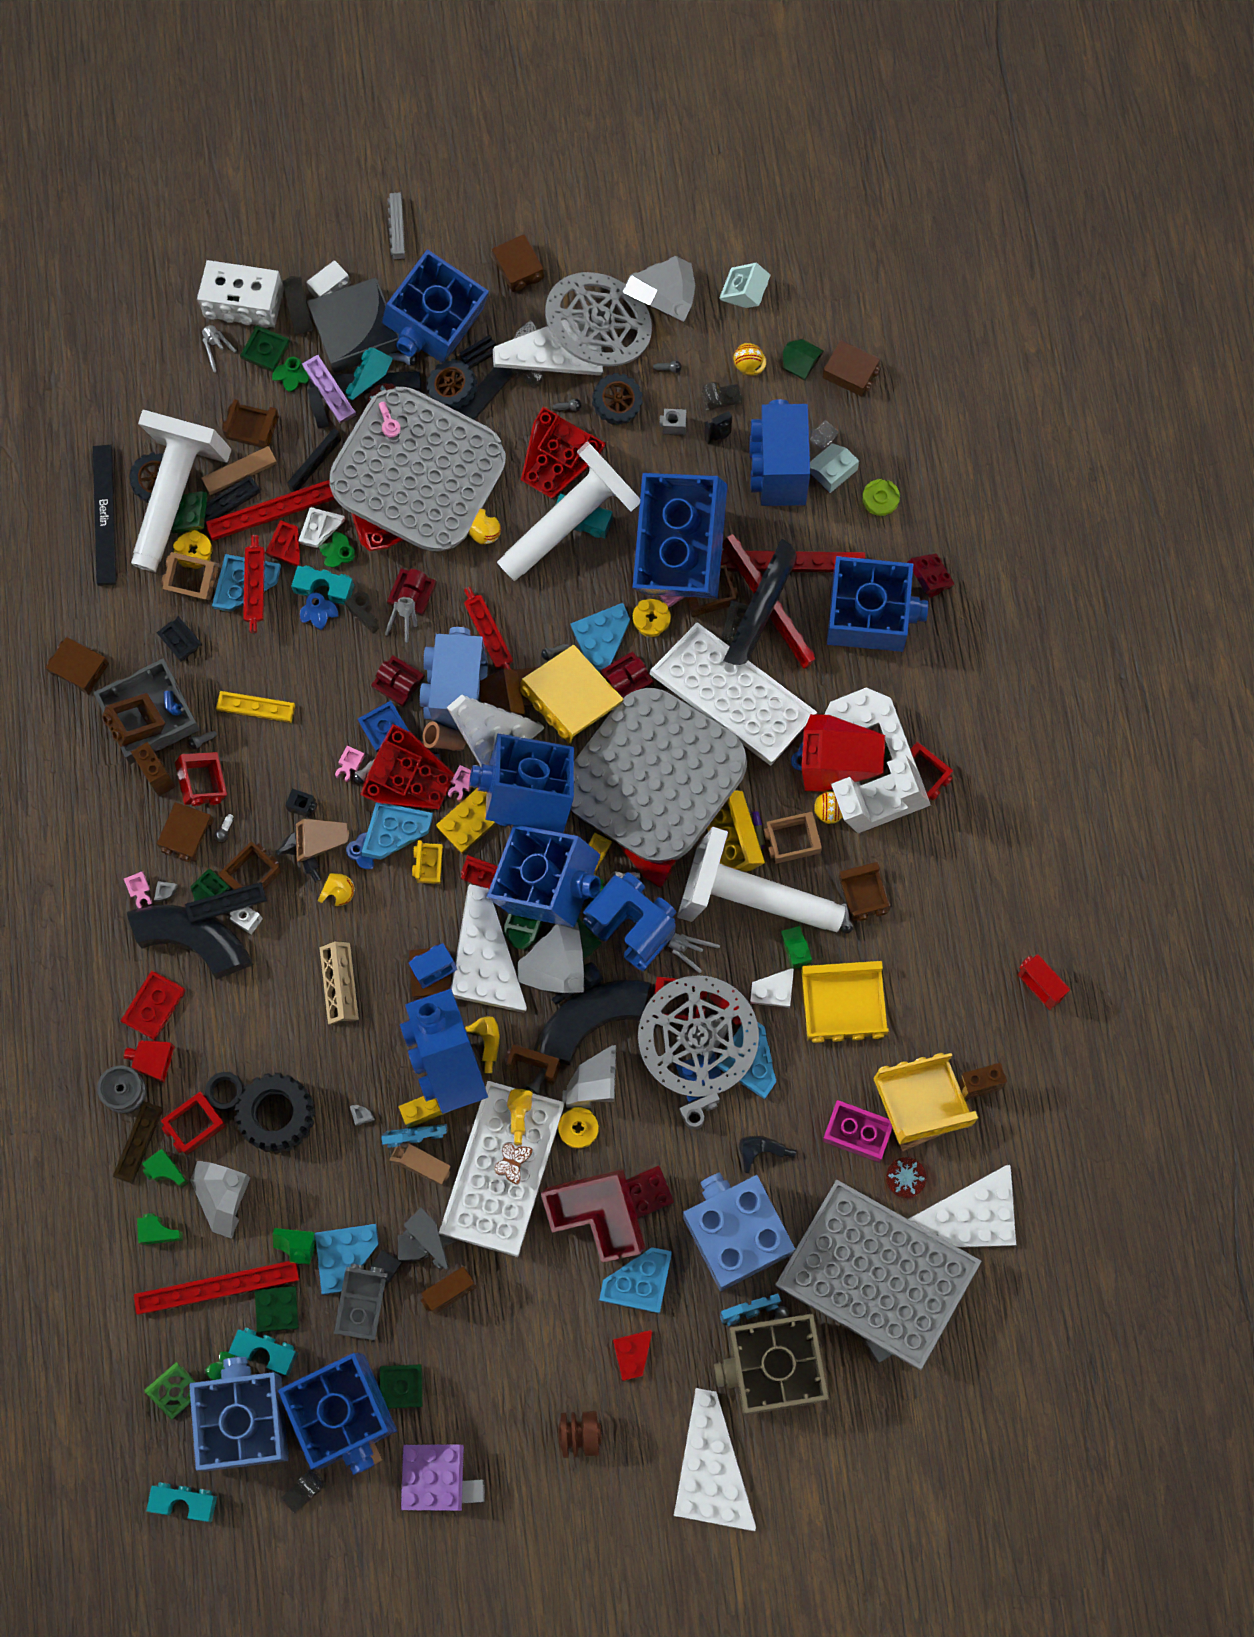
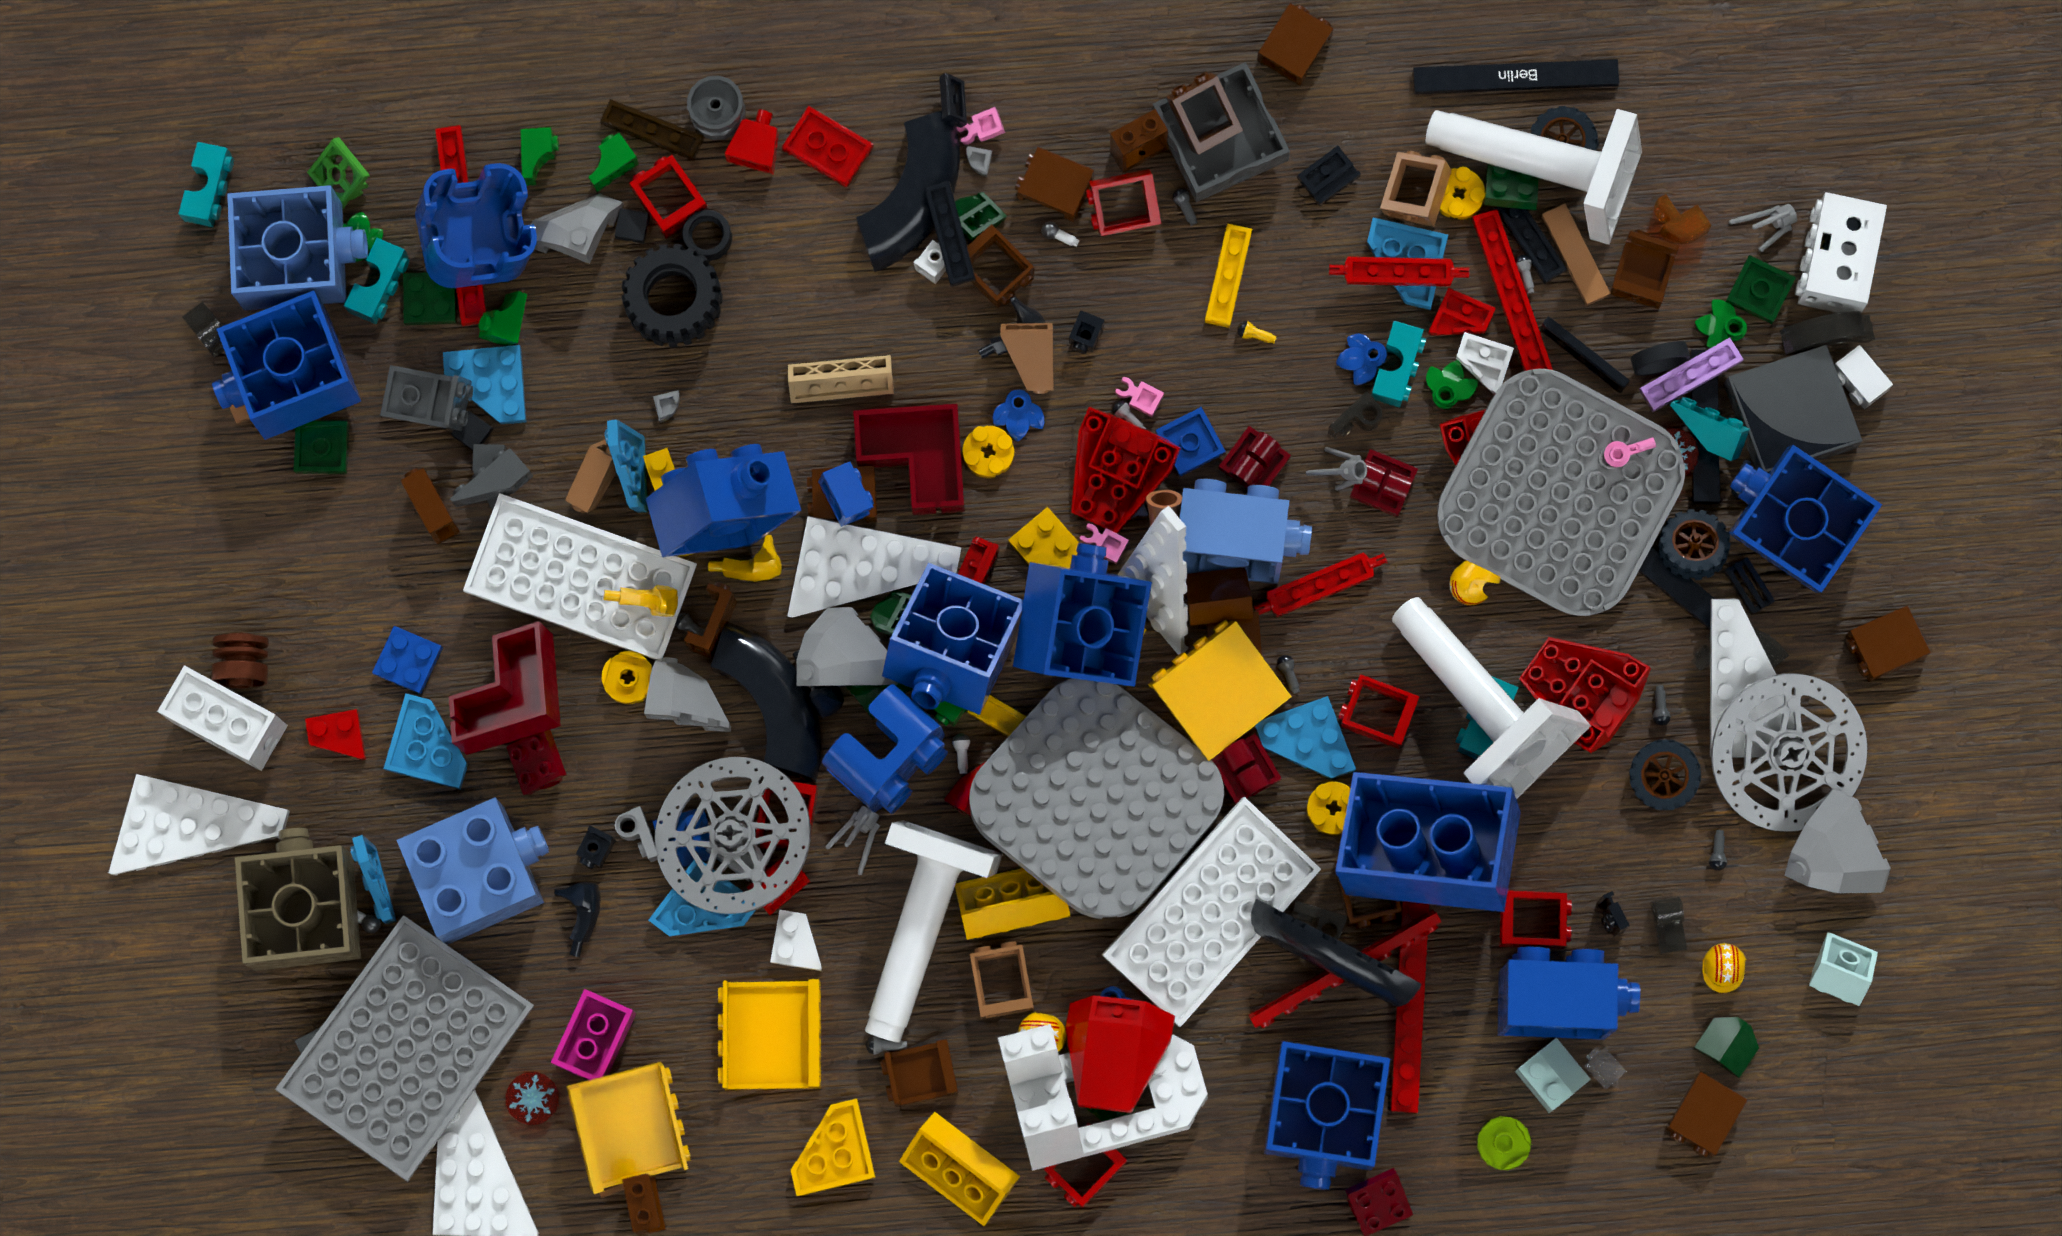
camera: 95 degrees right, 5 degrees up
(117, 909) = (953, 100): none -> black tile
(171, 706) = (1229, 162): blue arm -> none
(217, 1152) = (632, 226): none -> black piece
(218, 401) = (1680, 227): none -> clear orange brick
(222, 1270) = (475, 228): none -> blue piece
(248, 503) = (1523, 264): none -> light grey piece
(298, 690) = (1248, 330): none -> yellow piece
(340, 887) = (964, 379): yellow helmet -> none
(390, 911) = (923, 439): none -> dark red piece
(393, 829) = (1043, 452): dark azure plate -> none
(396, 223) = (1953, 475): light grey piece -> none
(400, 879) = (982, 438): none -> yellow plate
(428, 863) = (995, 495): yellow bracket -> none
(432, 1477) = (206, 481): medium lavender plate -> none
(473, 1491) = (187, 527): light grey brick -> none
(512, 1162) = (581, 587): animal -> none
(571, 1303) = (407, 660): none -> blue plate
(584, 570) = (1389, 691): none -> red window
(628, 1441) = (222, 718): none -> white piece
(673, 428) = (1626, 865): light grey brick -> none
(704, 1143) = (605, 844): none -> black brick
(714, 461) = (1506, 921): none -> red window
(758, 829) = (1023, 935): piece -> none
(796, 947) = (849, 975): green arch -> none
(927, 949) = (835, 1152): none -> yellow plate
(932, 860) = (959, 1168): none -> yellow slope

